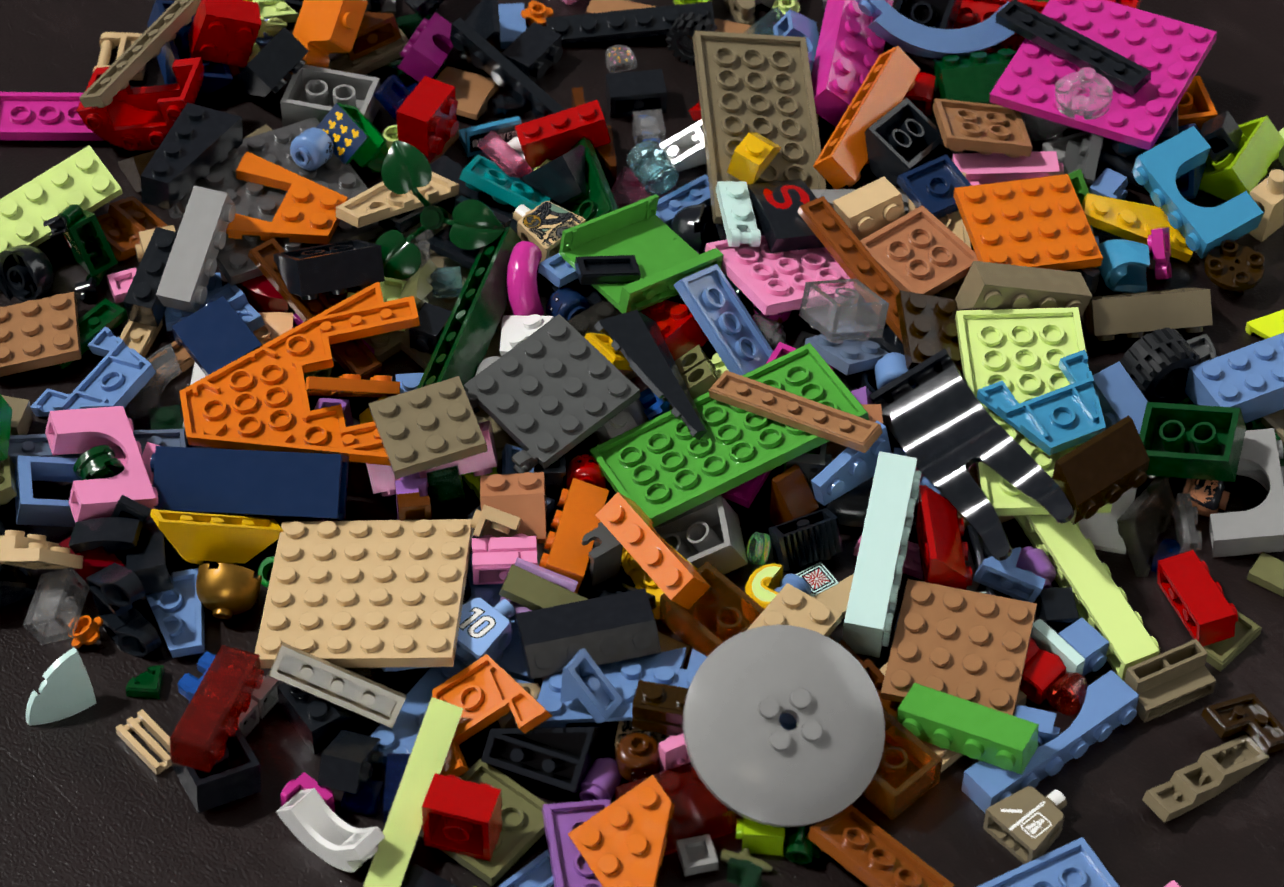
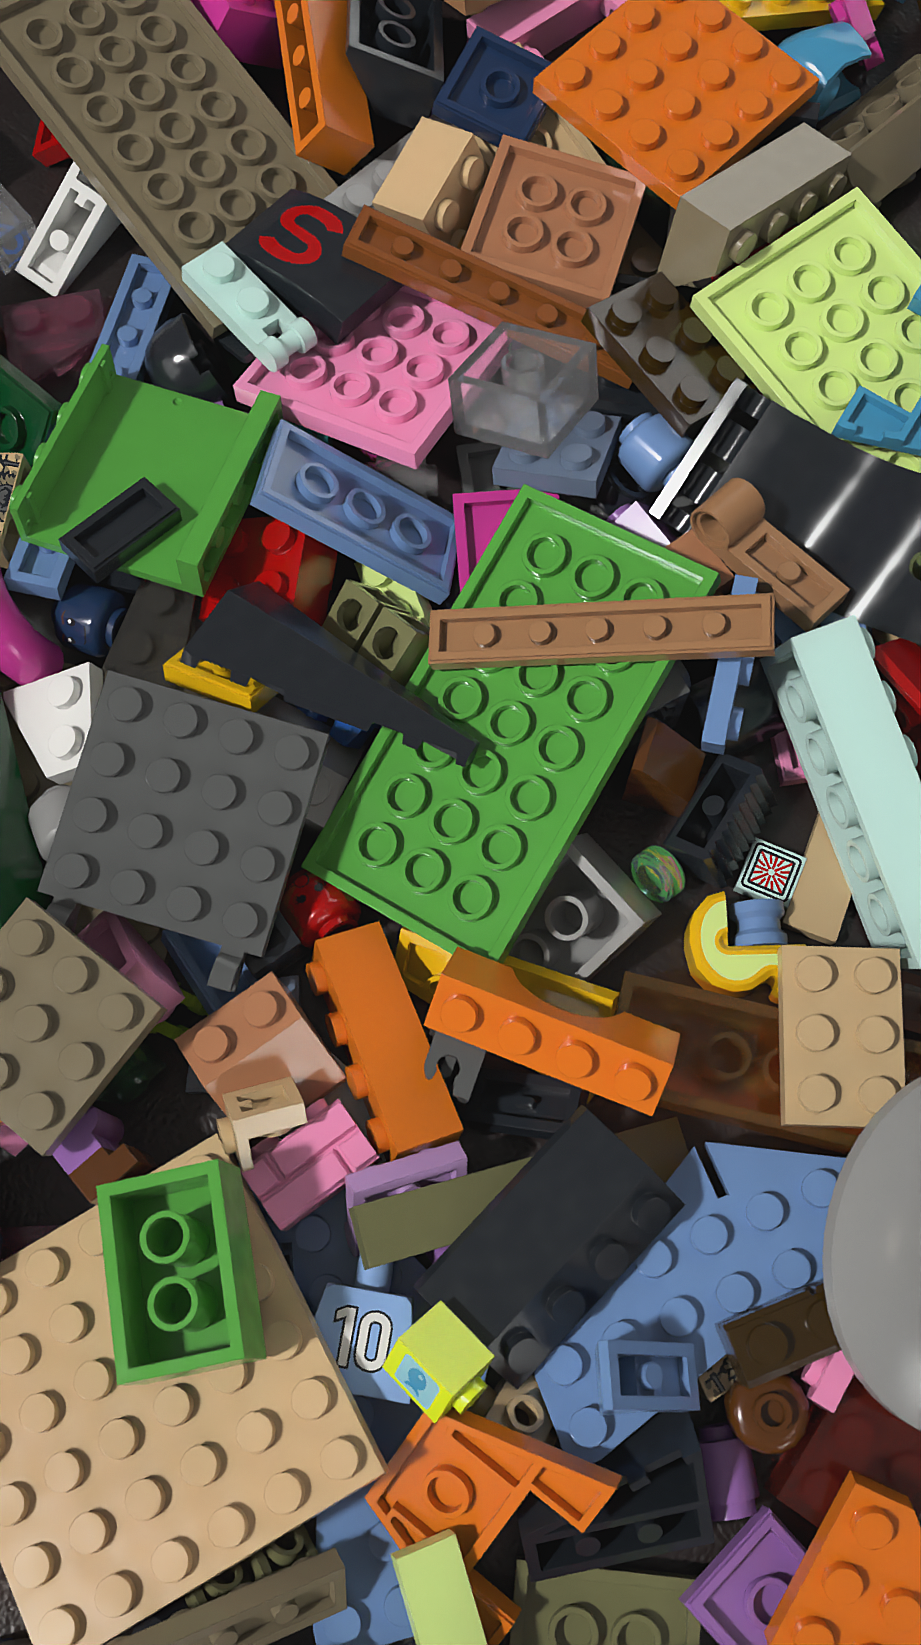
camera: 30 degrees left, 25 degrees up
(421, 539) = (179, 1273): none -> bright green brick
(505, 636) = (439, 1363): none -> neon yellow brick
(652, 167) = (54, 290): clear light blue wheel -> none
(752, 157) = (205, 193): yellow slope -> none
(905, 436) = (750, 546): none -> medium nougat plate

